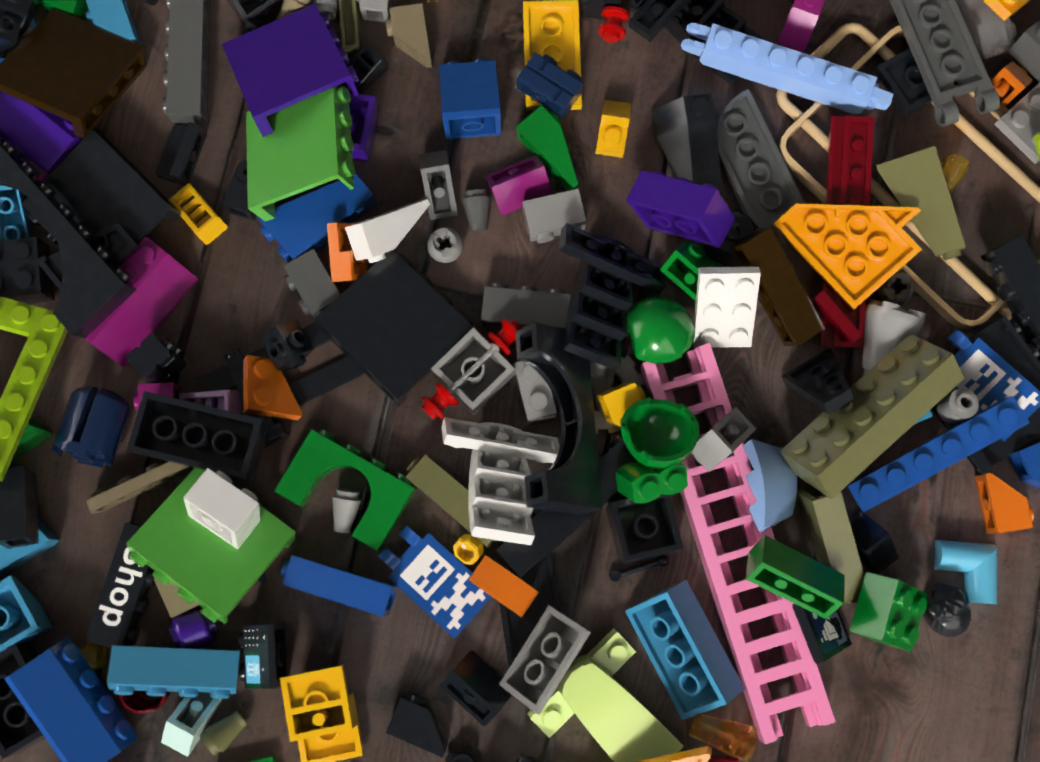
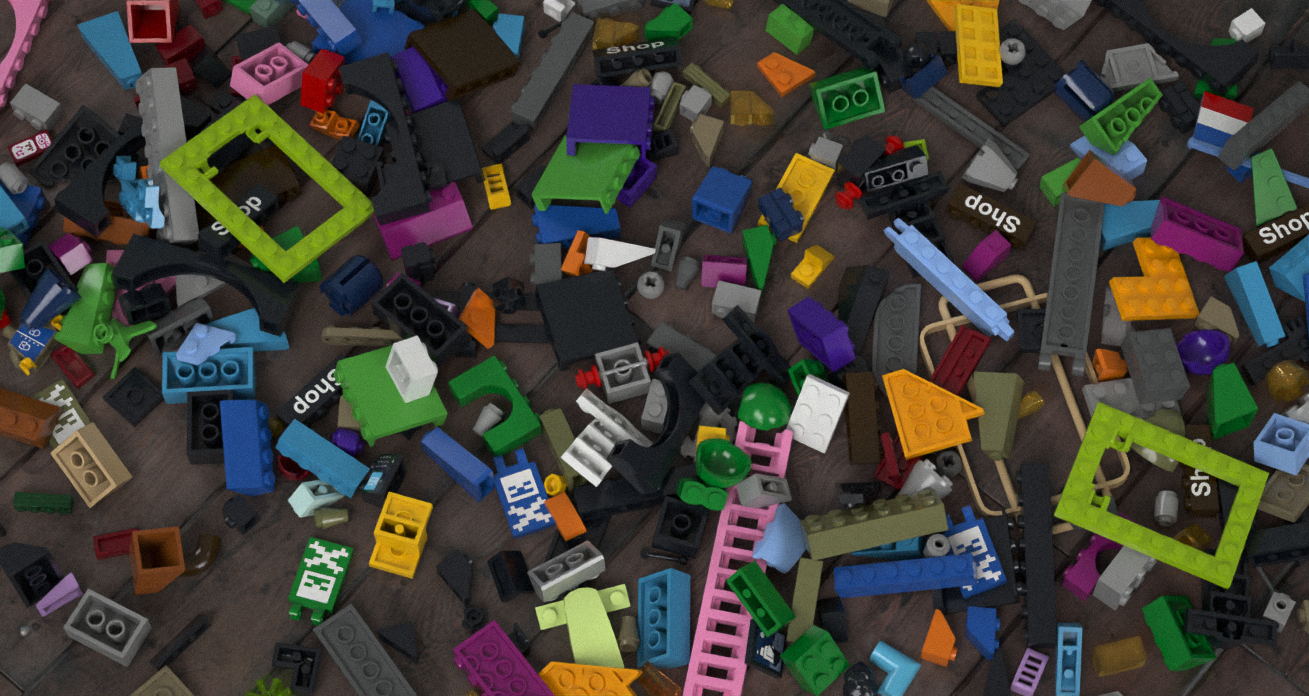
camera: 30 degrees right, 15 degrees down
(653, 689) = (628, 636): none -> dark tan cone

